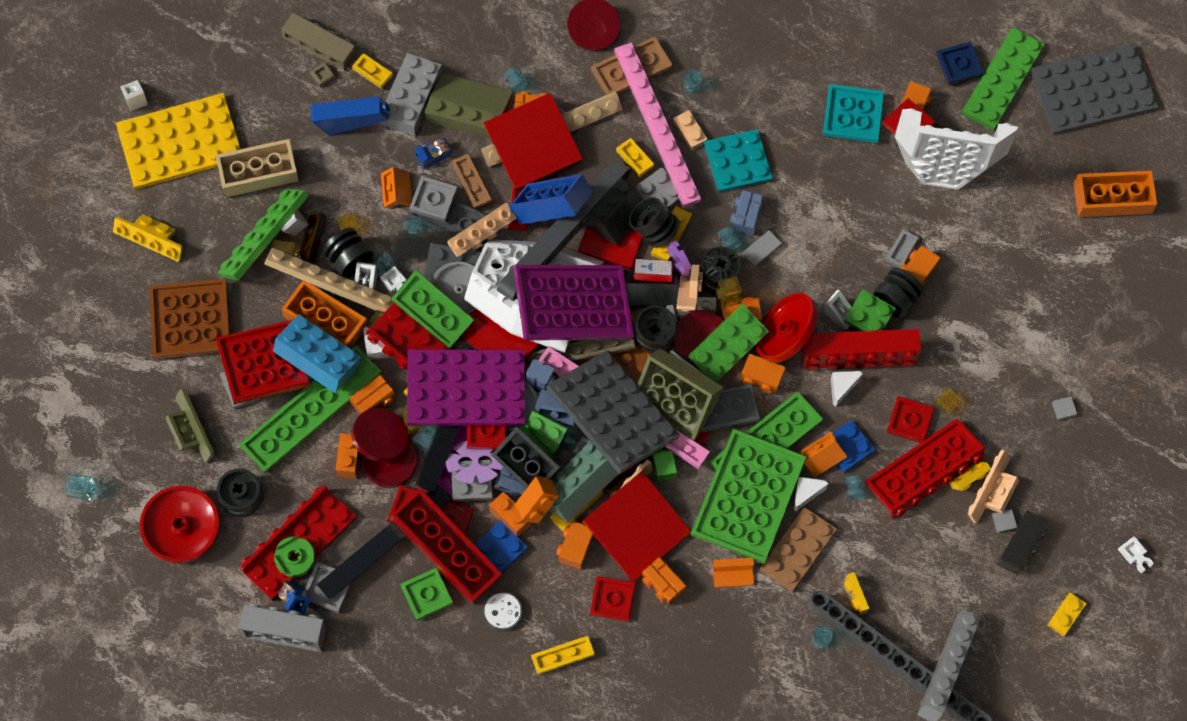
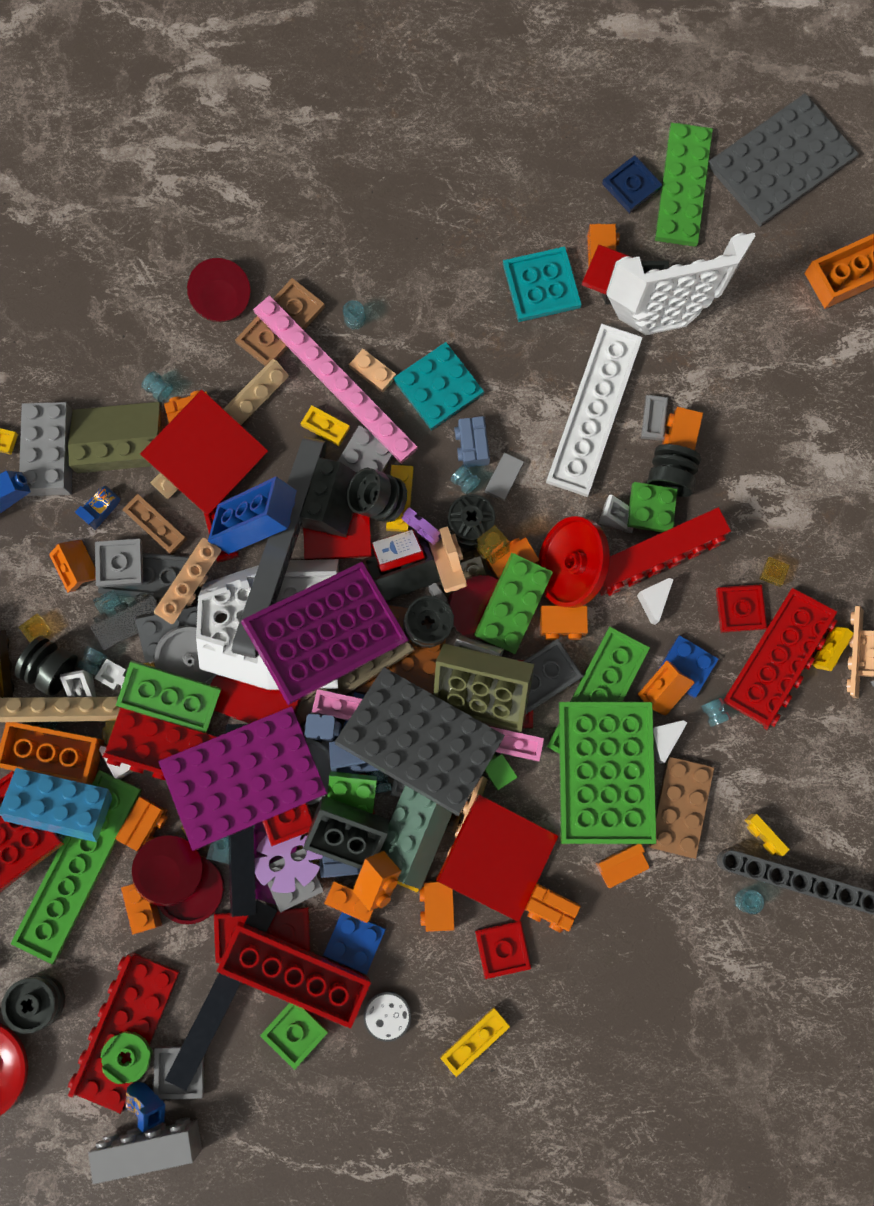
camera: 20 degrees left, 10 degrees up
(855, 225) = (594, 410): none -> white plate

